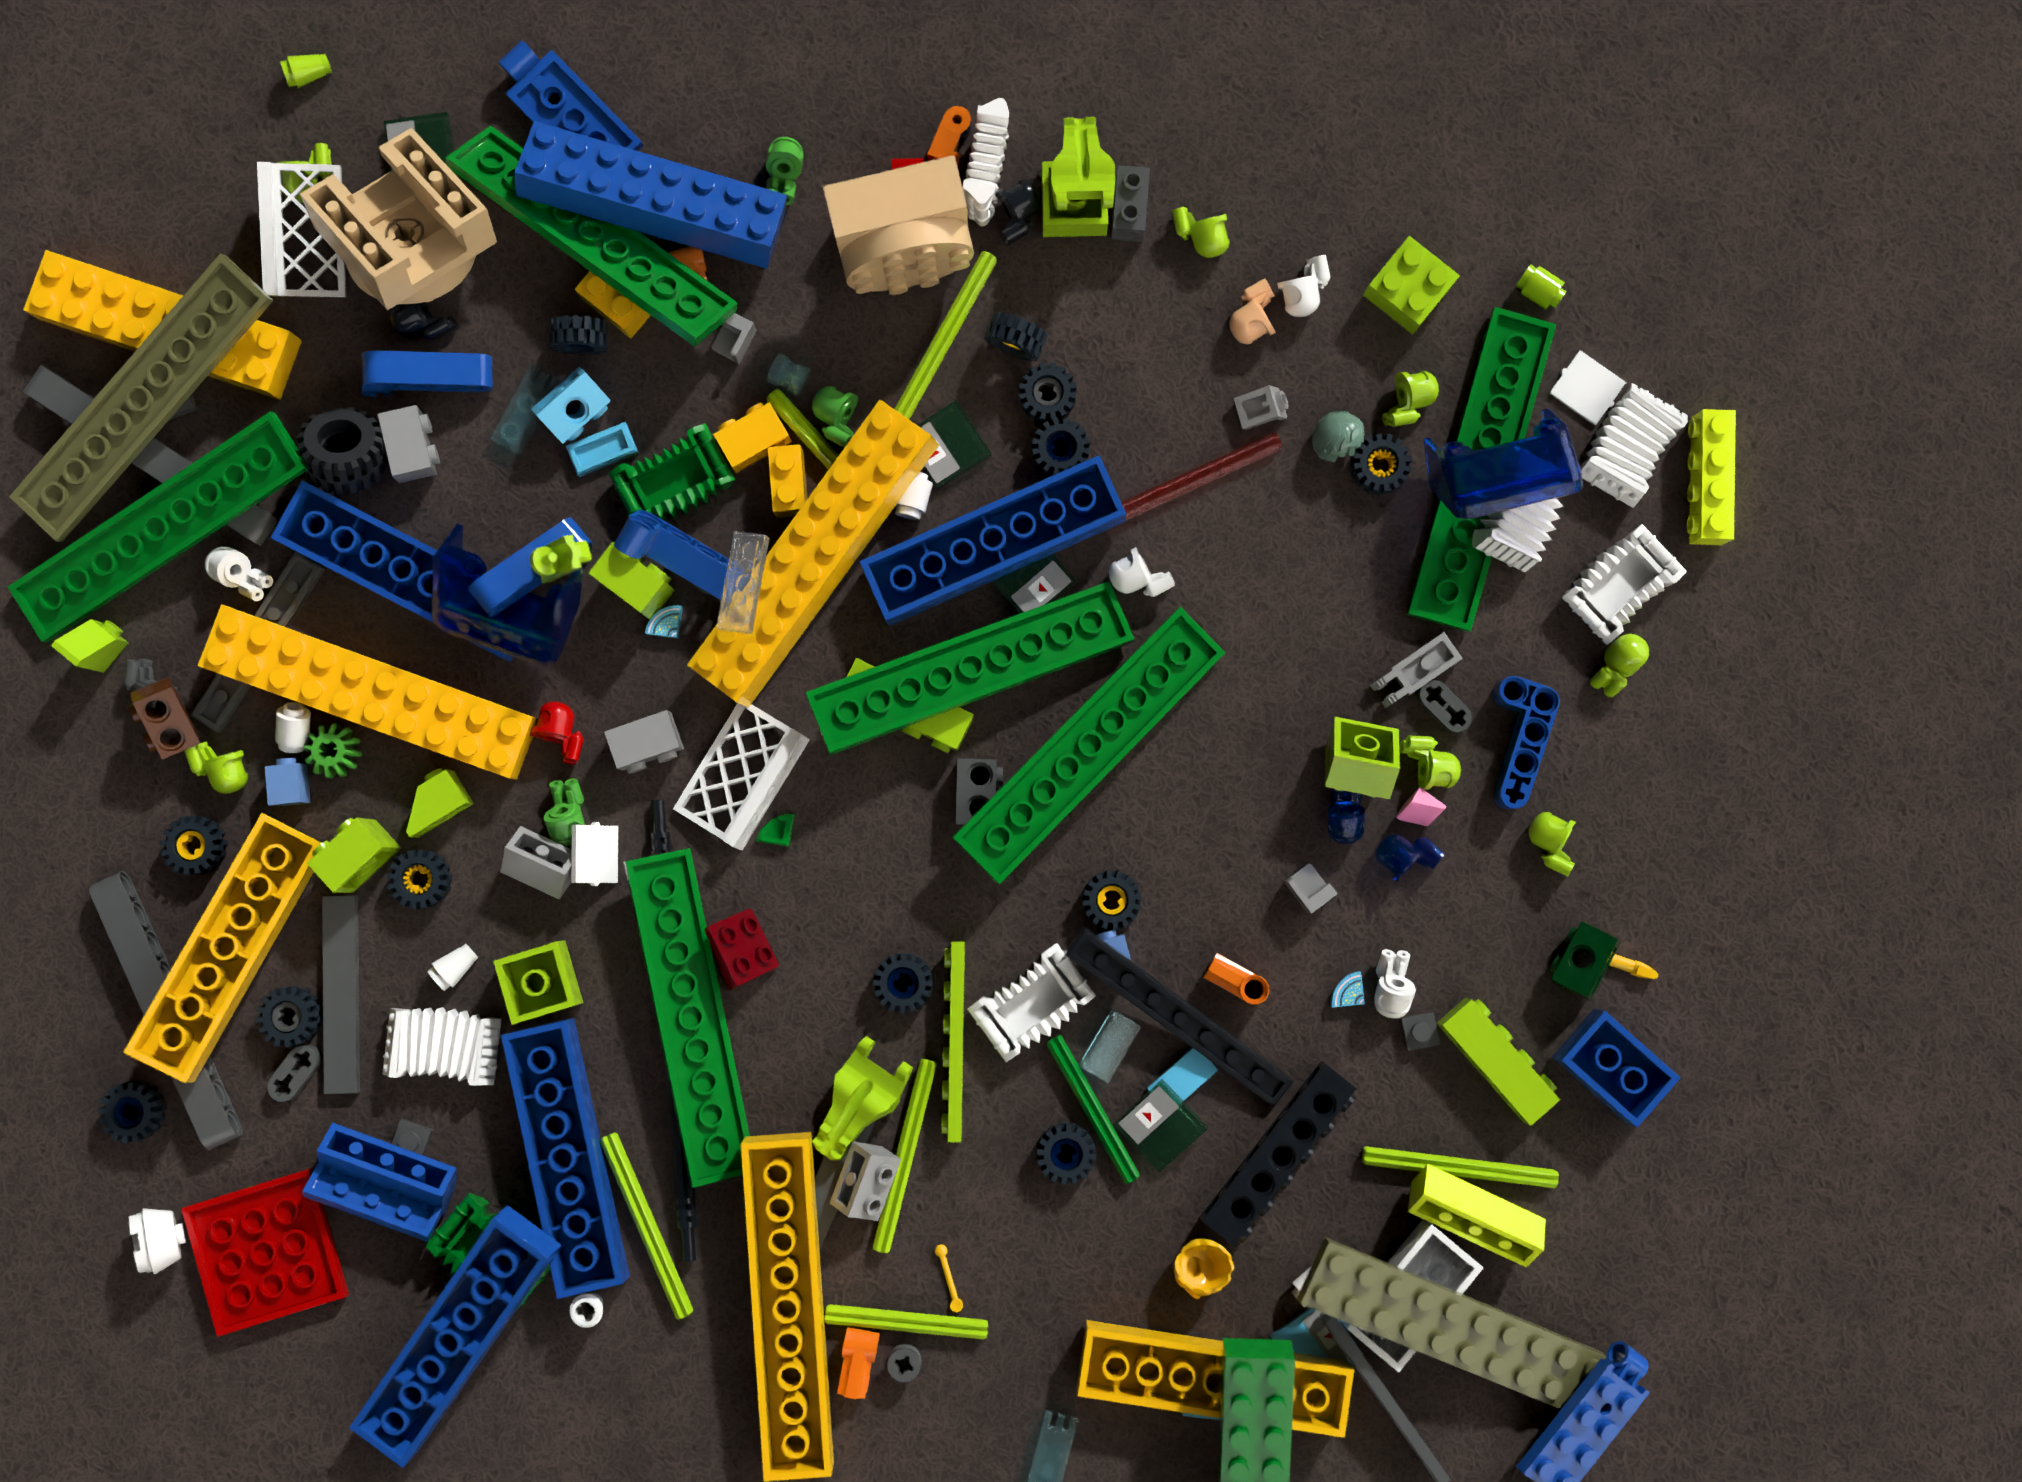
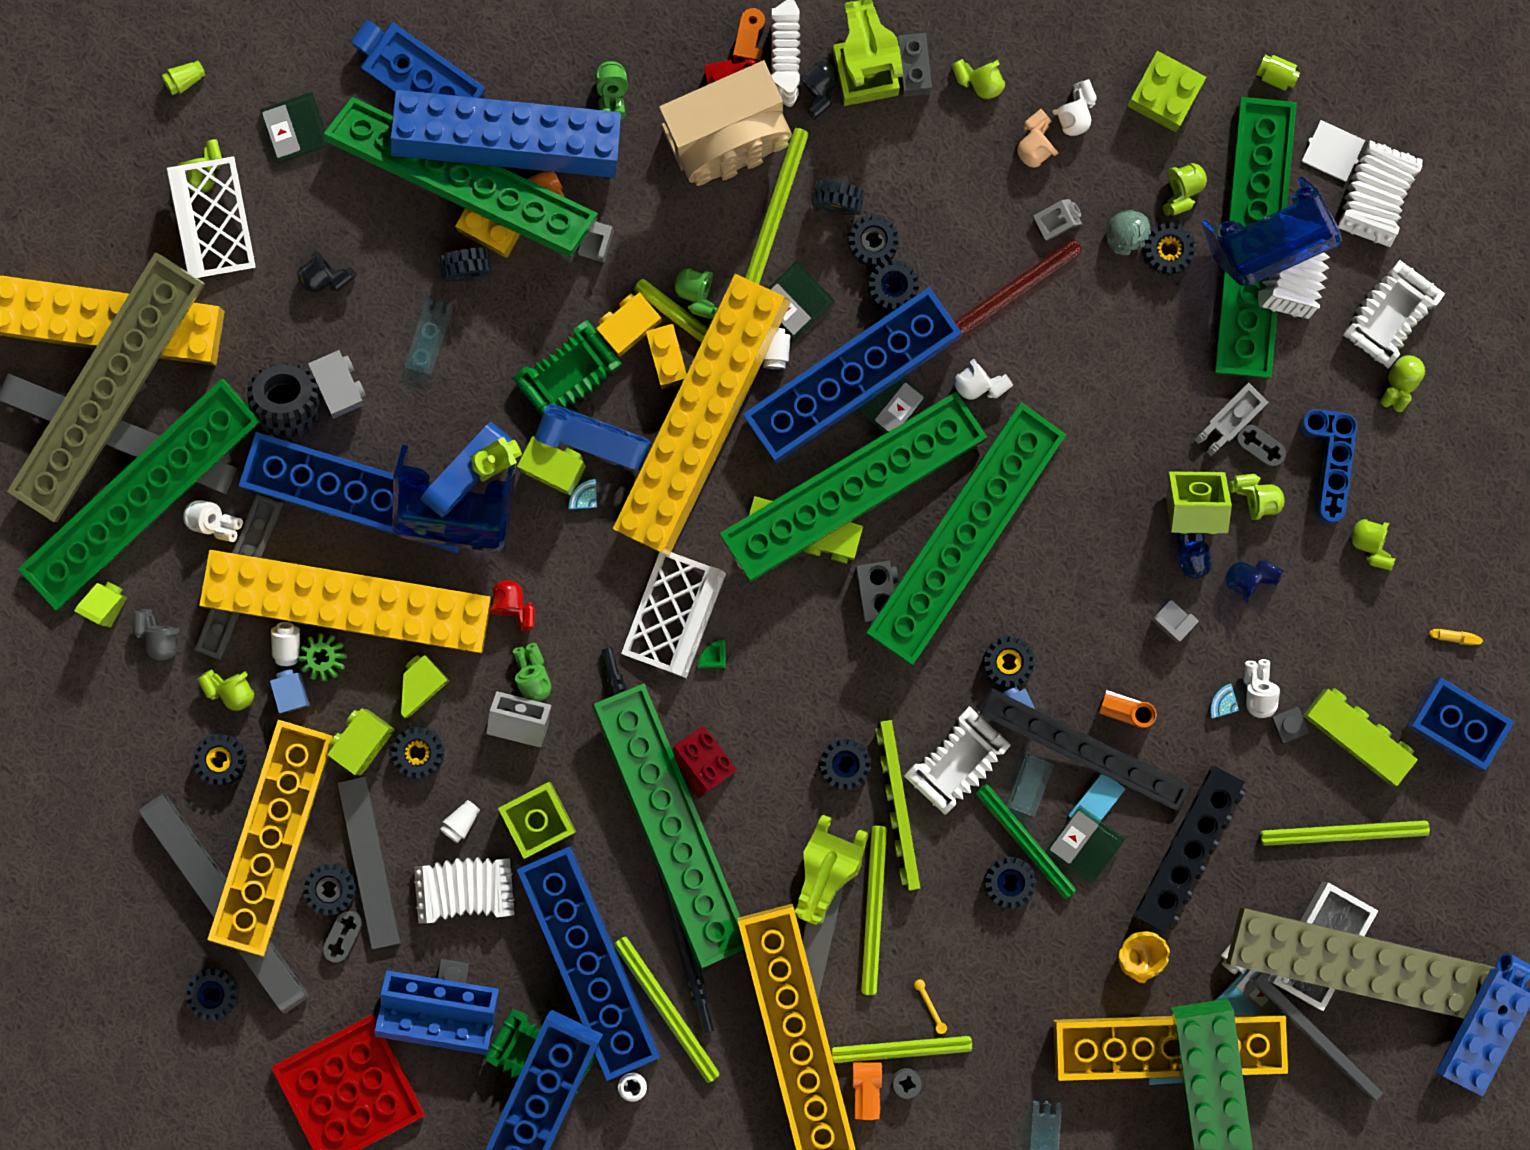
camera: 10 degrees left, 0 degrees up
(156, 1239) = (256, 1096): white cone -> none
(170, 716) = (182, 652): reddish brown brick -> none
(410, 205) = (304, 201): tan piece -> none
(424, 372) = (338, 320): blue beam -> none
(552, 407) = (455, 331): medium azure brick -> none
(594, 854) = (563, 703): white piece -> none
(602, 449) = (501, 358): medium azure tile -> none
(644, 741) = (587, 600): light grey brick -> none
(743, 582) = (649, 450): clear plate -> none
(788, 374) = (649, 264): clear light blue wheel -> none
(865, 1181) = (845, 936): light grey brick -> none
(1421, 808) = (1256, 536): bright pink slope -> none
(1477, 1215) = (1365, 869): neon yellow brick -> none
(1585, 980) = (1422, 655): dark green brick -> none
(1711, 477) = (1452, 209): neon yellow brick -> none

